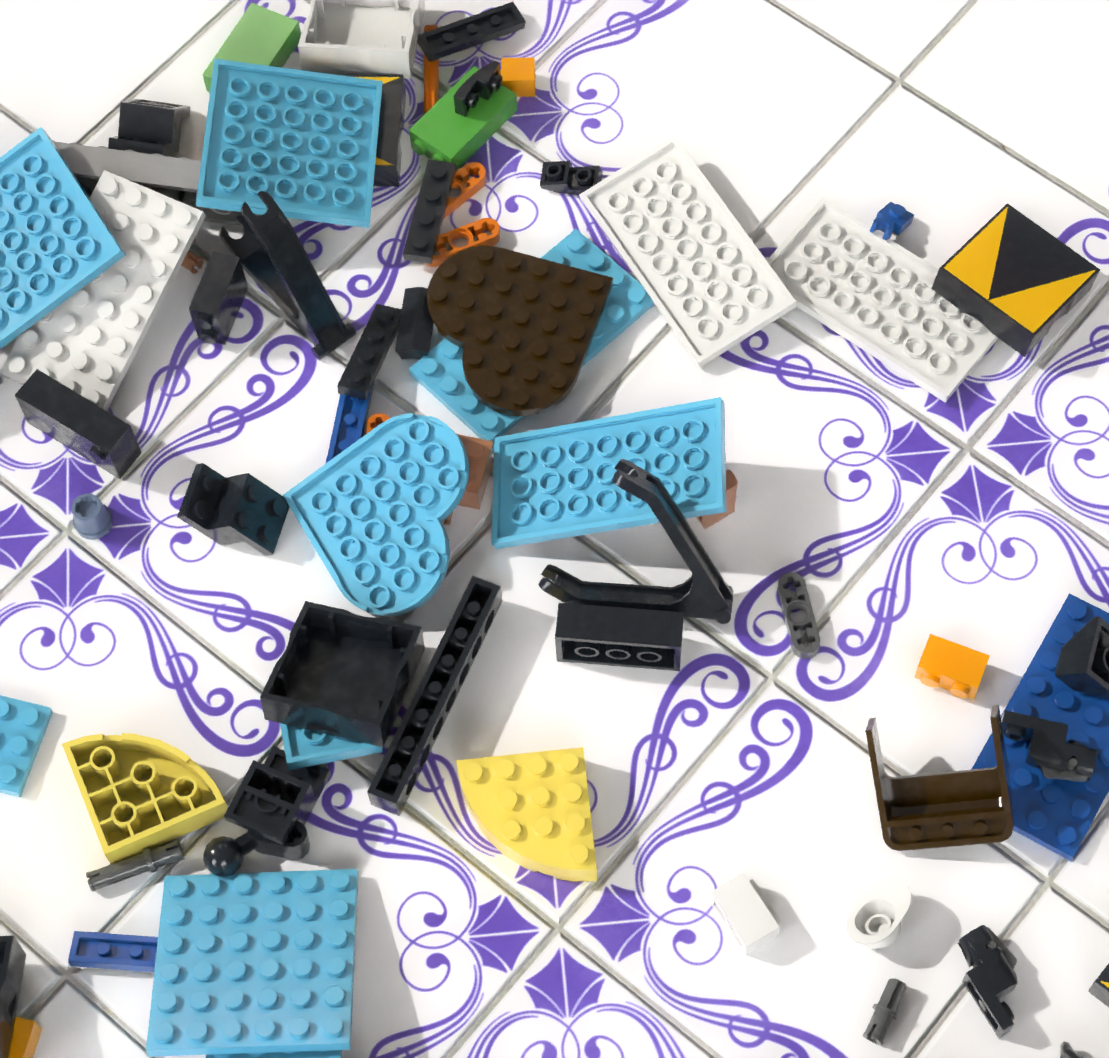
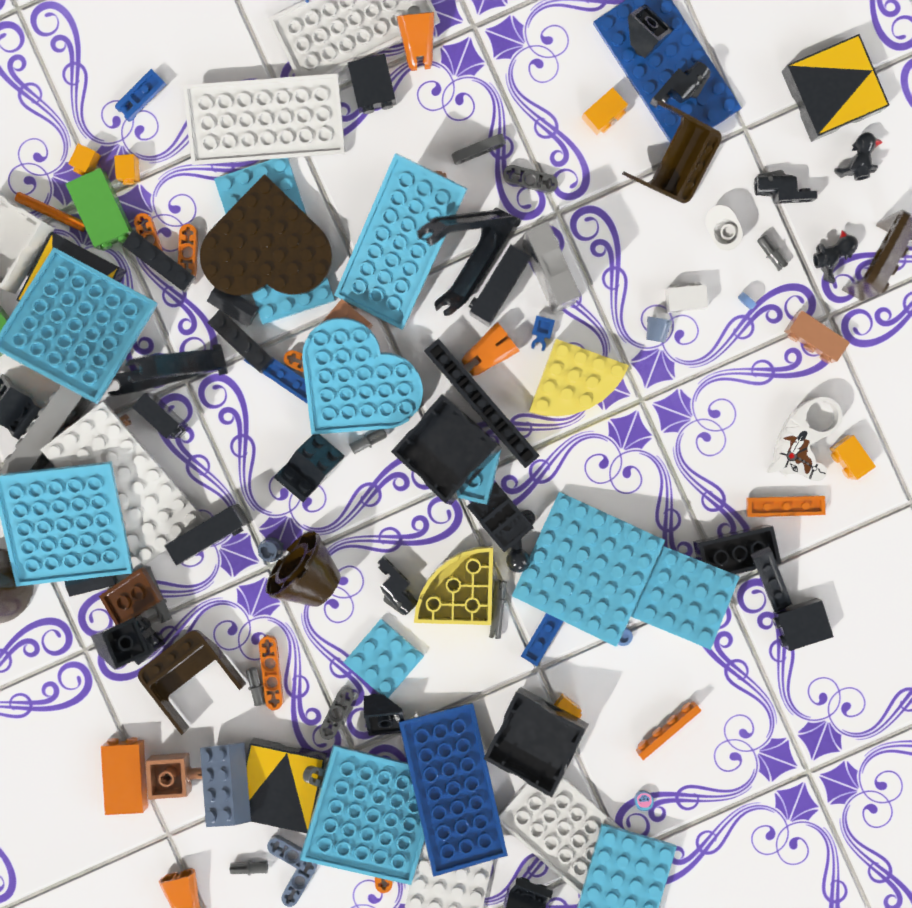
camera: 70 degrees left, 25 degrees up
(72, 568) = (305, 573): none -> dark brown cone
(109, 702) = (395, 588): none -> black plate
(308, 573) = (368, 440): none -> dark grey axle
(471, 31) = (35, 172): black plate -> none
(481, 85) = (86, 187): black slope -> none
(523, 674) = (490, 350): none -> orange piece
(532, 127) = (127, 169): none -> light orange brick
(566, 179) = (175, 164): black slope -> none
(590, 731) = (542, 329): none -> blue plate
(637, 102) = (140, 95): none -> blue plate
(675, 893) = (657, 329): none -> sand blue piece
(676, 681) = (550, 267): none -> light grey tile
(790, 1007) = (747, 301): none -> medium blue tile
(800, 527) = (478, 149): none -> dark grey beam
(810, 355) = (372, 84): none -> black brick
(903, 378) = (417, 37): none -> orange piece

